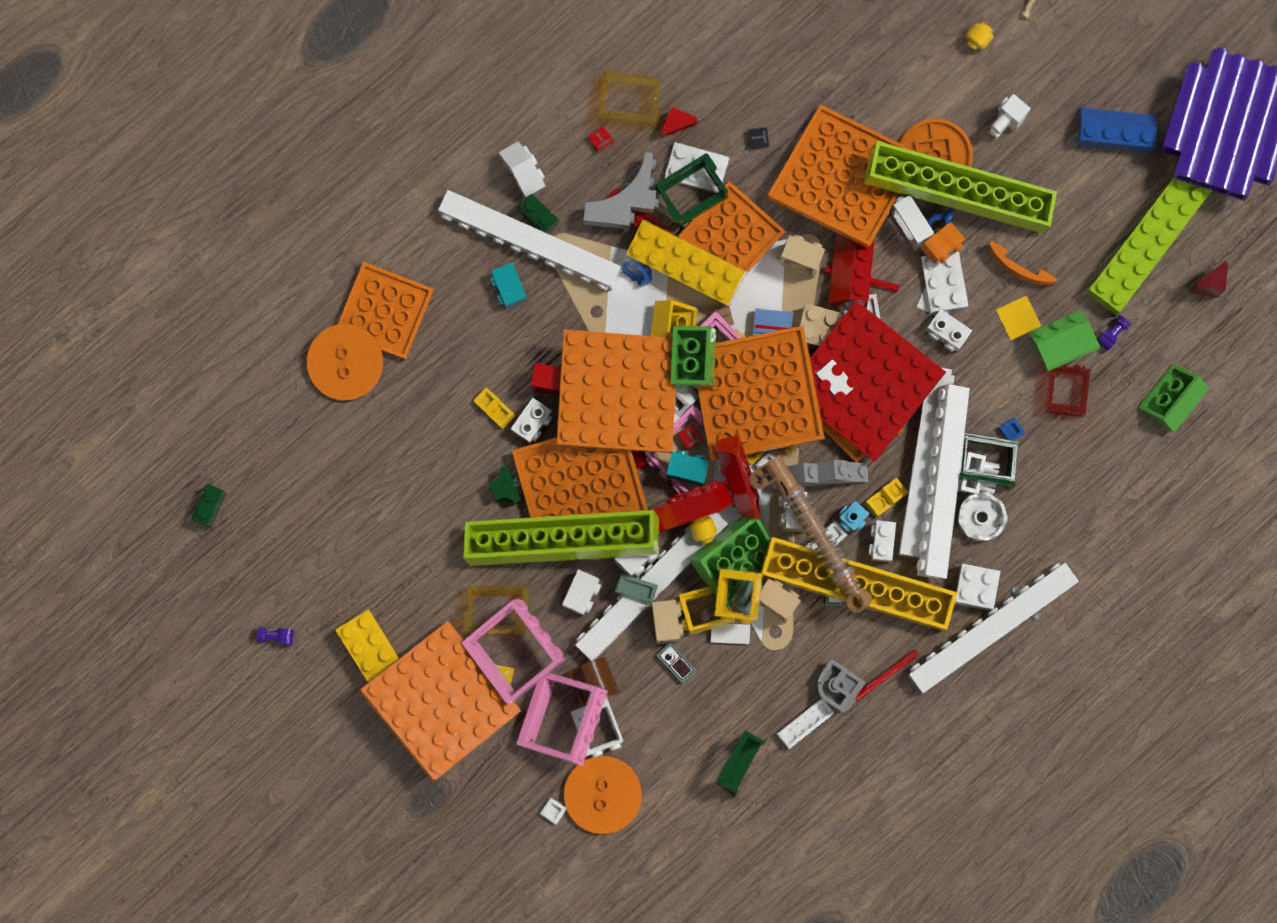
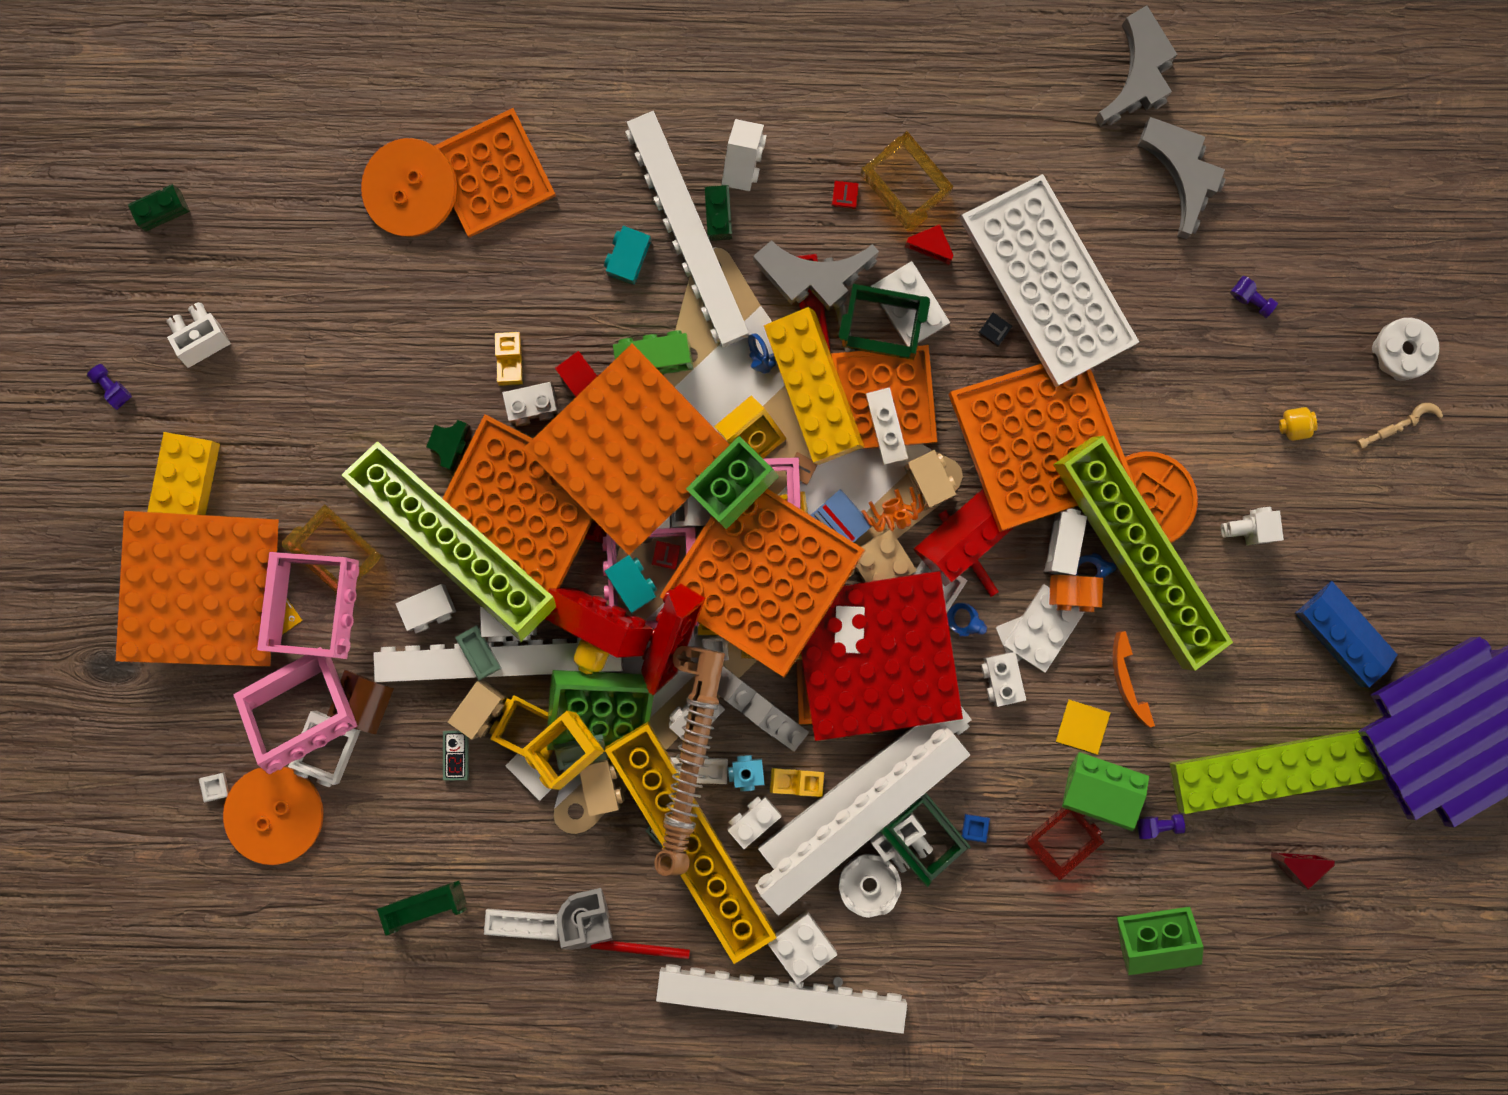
camera: 45 degrees right, 5 degrees up
(304, 559) = (197, 339): none -> white brick
(586, 318) = (666, 353): none -> bright green brick
(748, 248) = (886, 426): none -> white plate
(763, 82) = (1049, 280): none -> white plate
(799, 291) = (896, 512): none -> orange animal
(904, 316) = (975, 625): none -> blue piece

